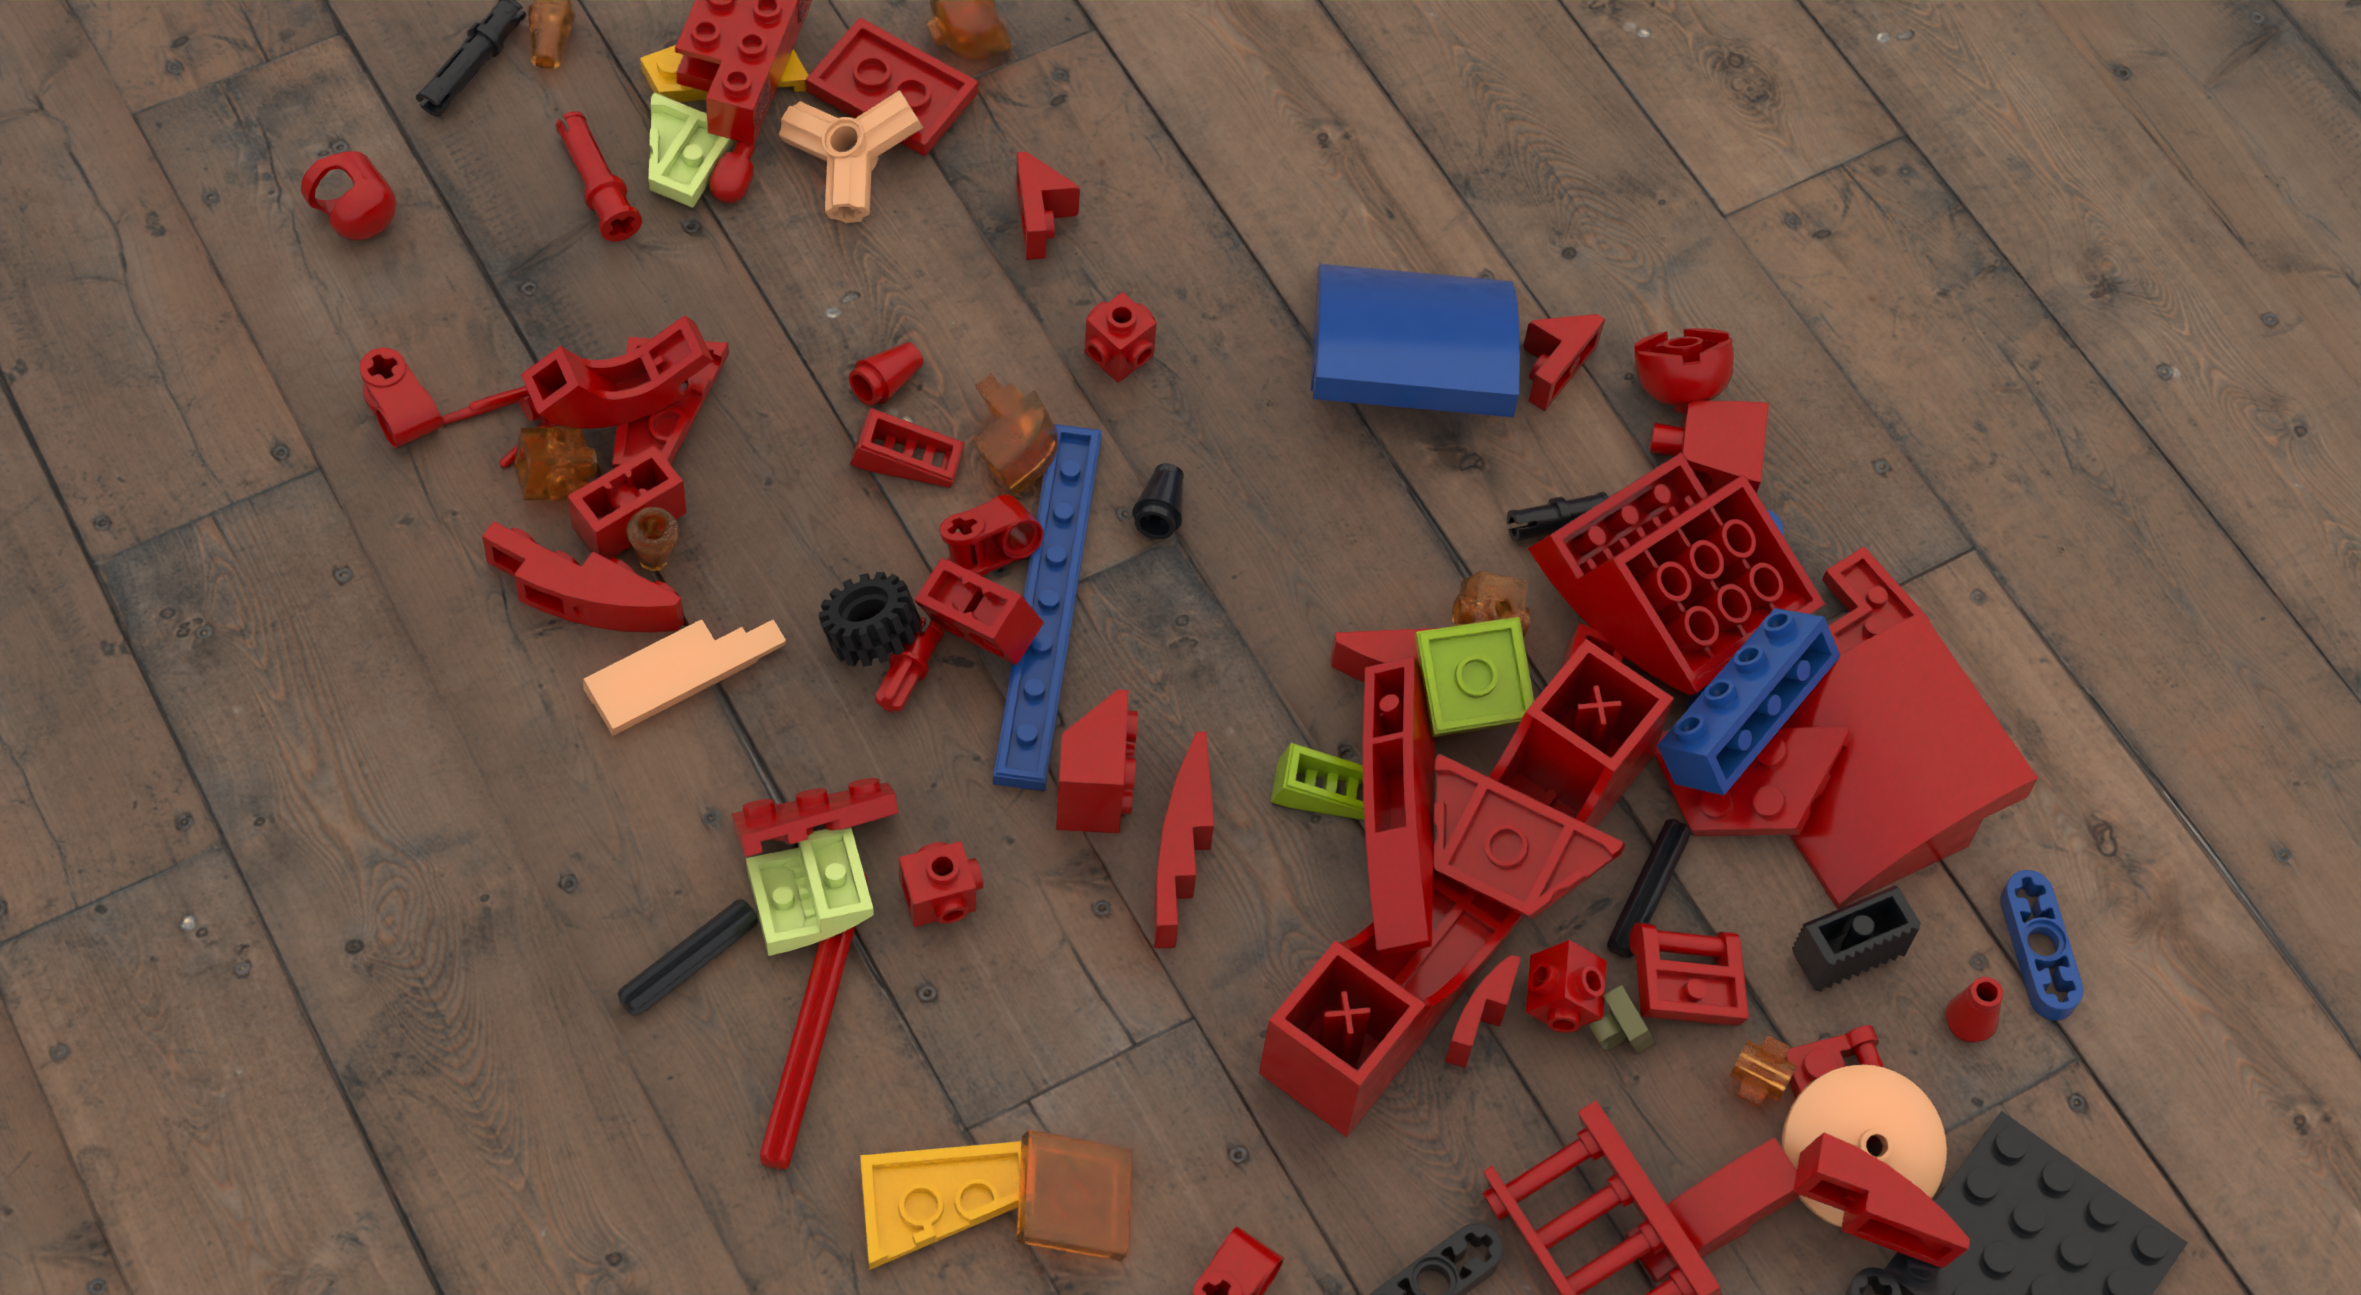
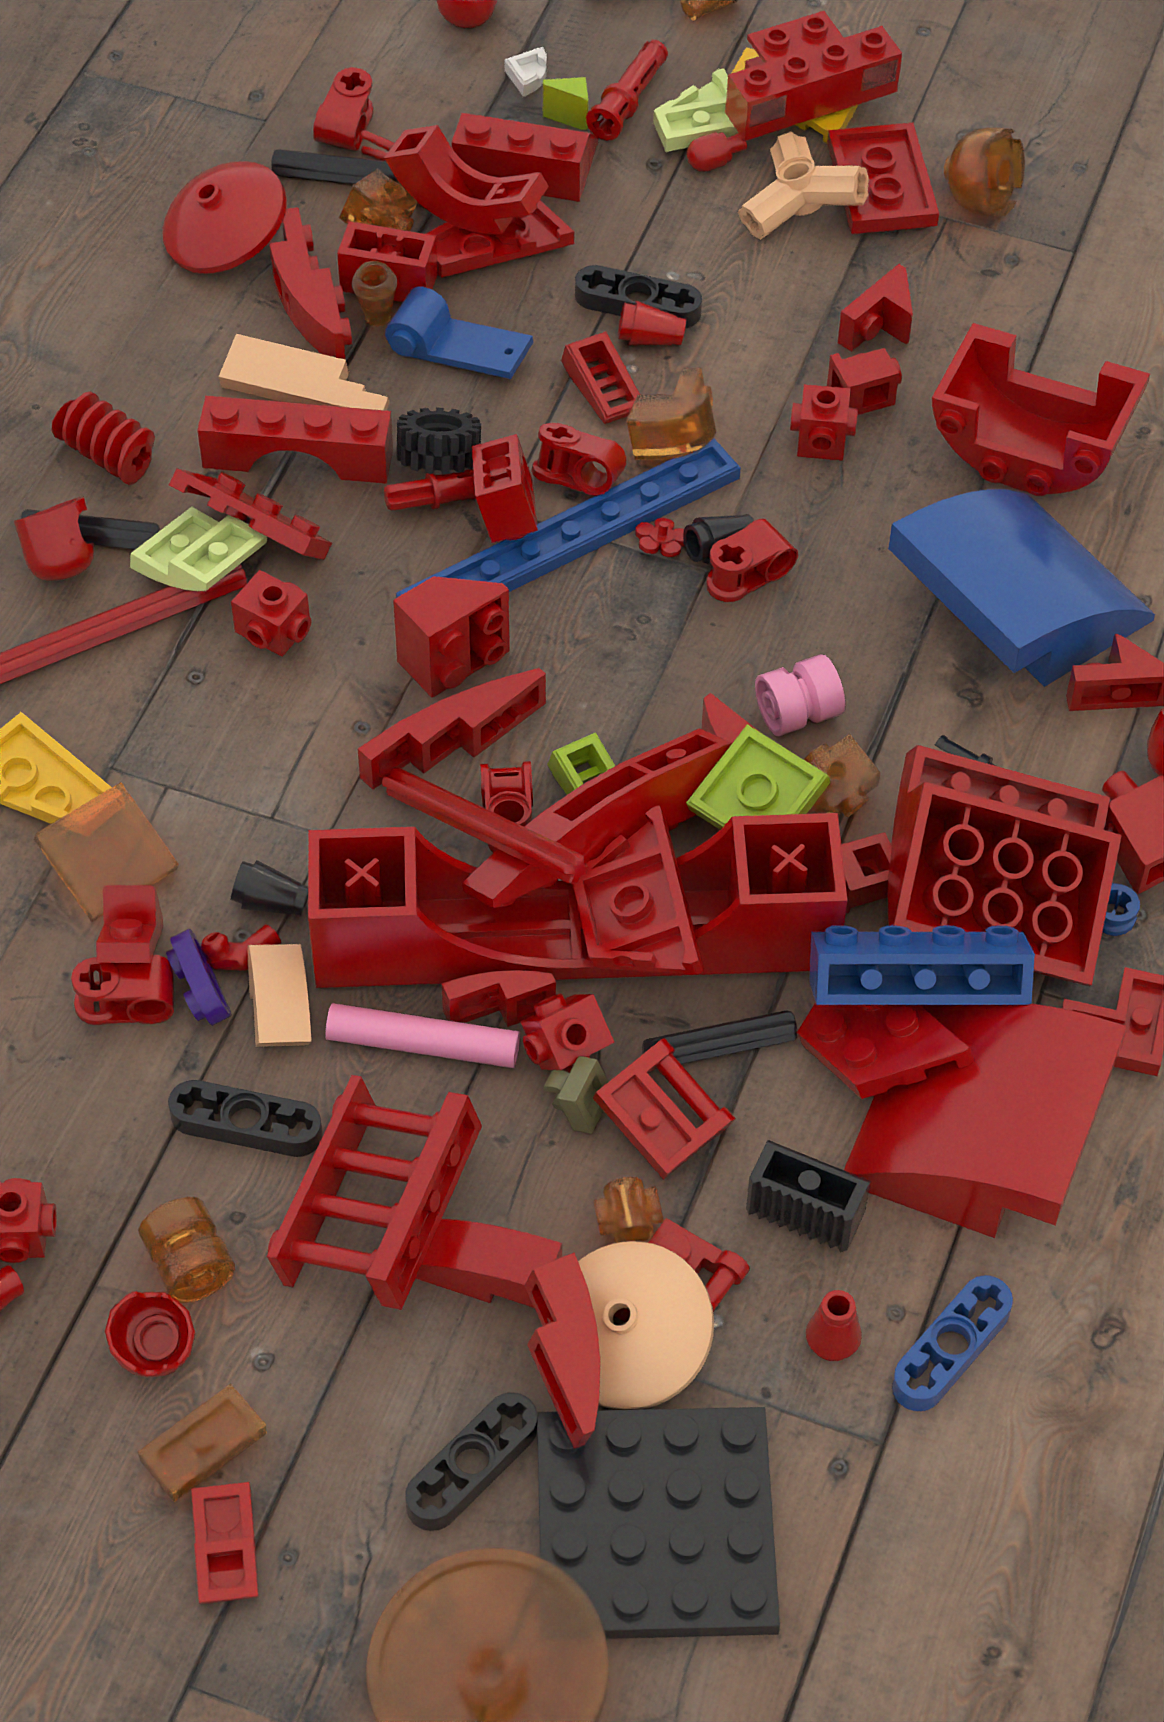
camera: 55 degrees right, 5 degrees down
(449, 459) = (326, 167): none -> black axle
(454, 603) = (224, 217): none -> red dish
(484, 229) = (527, 70): none -> white tile
(568, 230) = (566, 101): none -> lime slope
(594, 304) = (522, 148): none -> red slope
(601, 865) = (105, 436): none -> red piece
(704, 1000) = (54, 541): none -> red helmet
(713, 751) = (350, 440): none -> red arch
(732, 533) = (427, 332): none -> blue door
(849, 336) = (610, 279): none -> black beam
(1099, 273) = (870, 376): none -> red brick
(1114, 541) = (660, 537): none -> red plant
(1189, 1236) = (130, 924): none -> red slope
(1207, 502) = (749, 561): none -> red piece
(1221, 1101) = (268, 890): none -> black cone
(1265, 1171) = (234, 955): none -> red arm
(1284, 198) = (1027, 426): none -> red cylinder
(1288, 855) = (508, 792): none -> red piece
(1294, 1225) = (205, 996): none -> dark purple plate
(1334, 1162) = (279, 995): none -> light nougat slope
(1337, 891) = (486, 825): none -> red axle
(1382, 574) = (806, 693): none -> bright pink wheel
(1466, 1093) = (422, 1035): none -> bright pink piece

